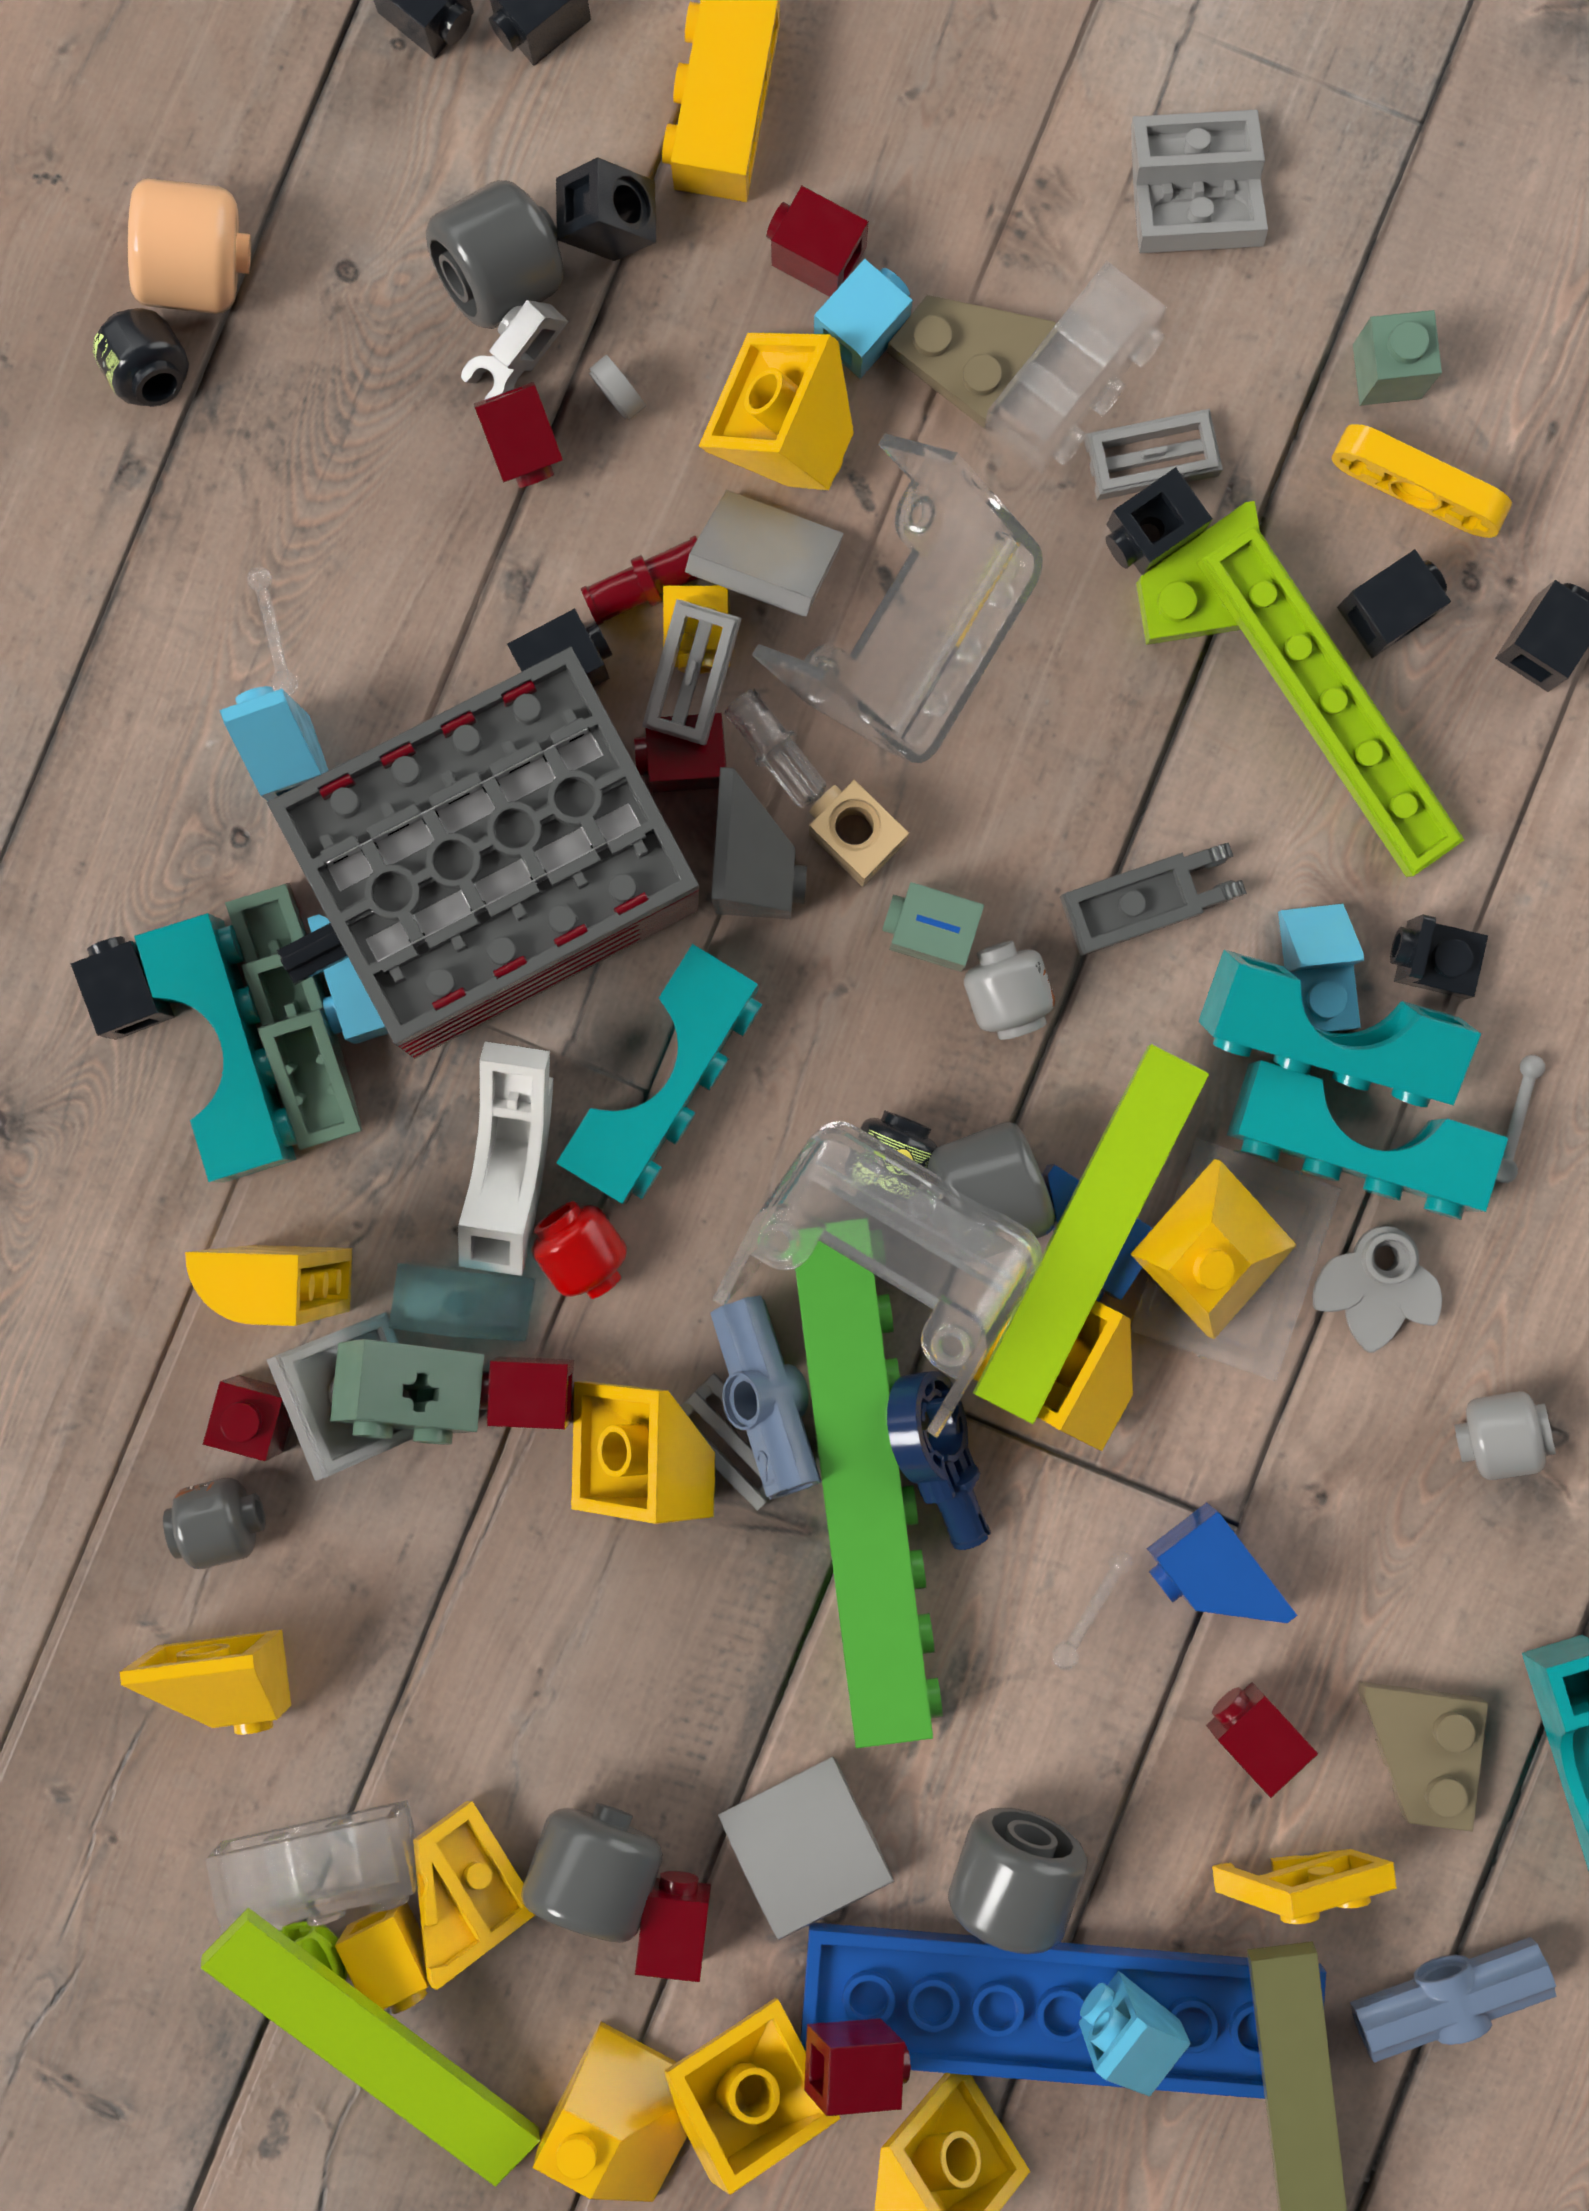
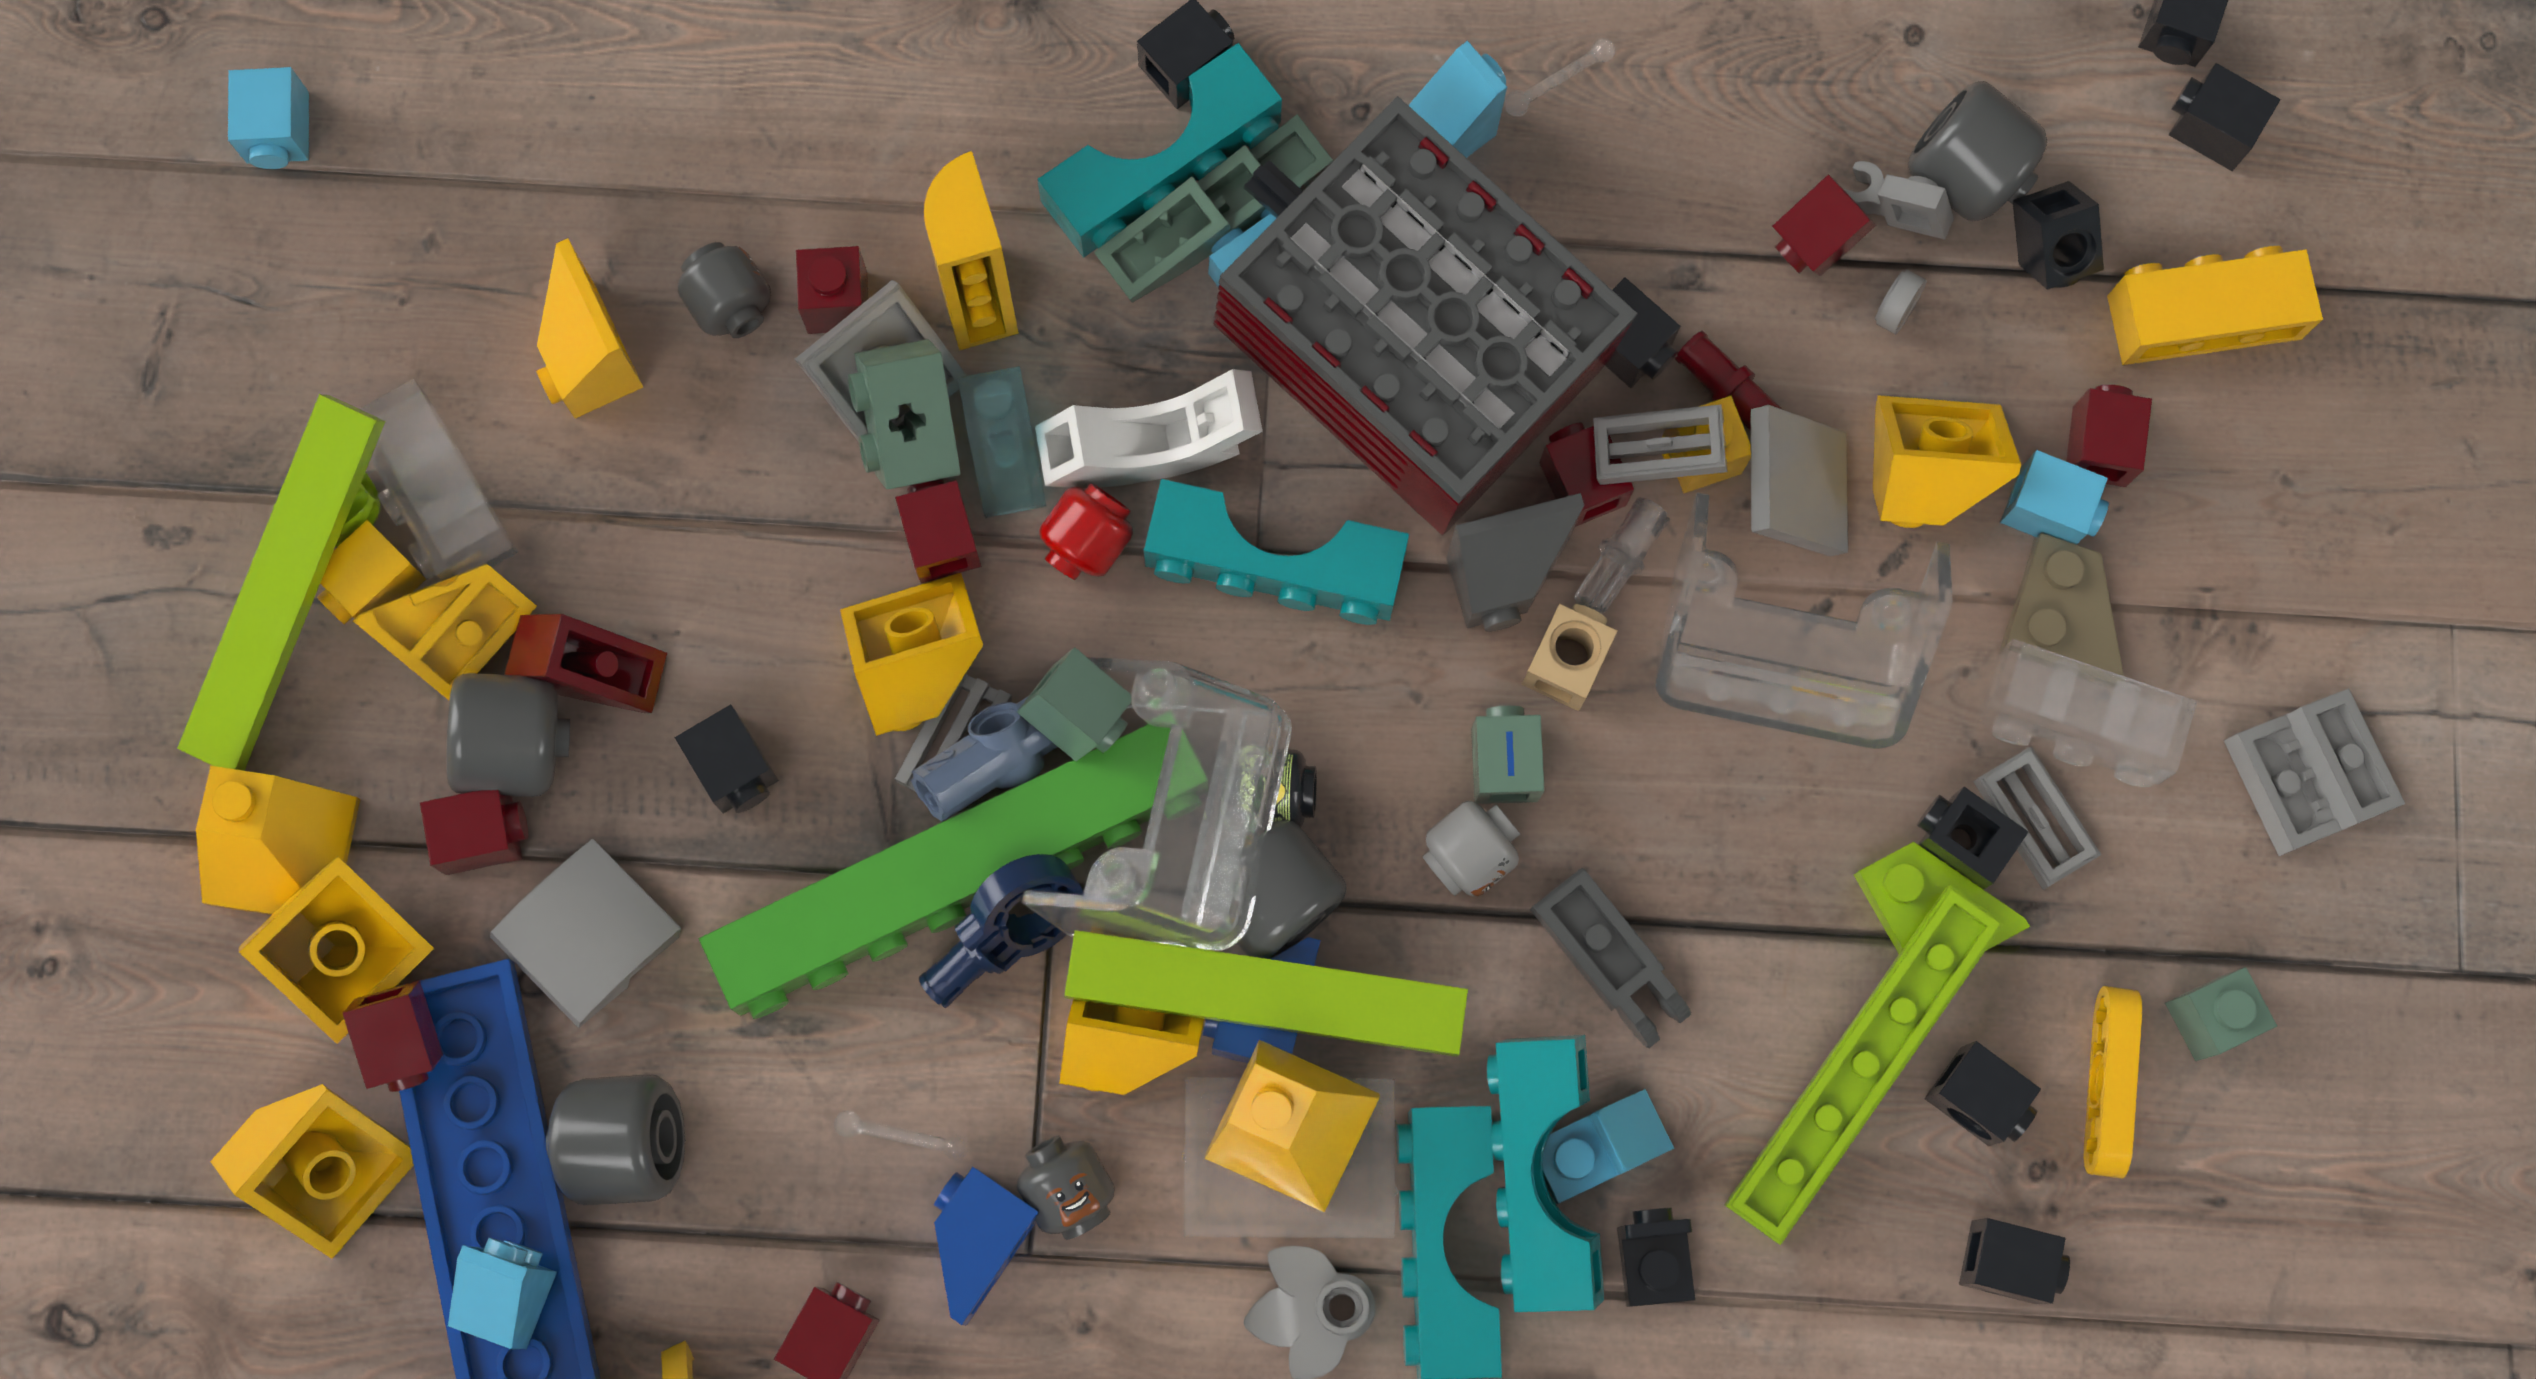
camera: 65 degrees right, 10 degrees down
(546, 1772) = (587, 661): none -> dark red slope
(688, 1664) = (727, 761): none -> black brick
(759, 1320) = (1077, 706): none -> sand green brick
(1197, 1475) = (1066, 1187): none -> dark grey head

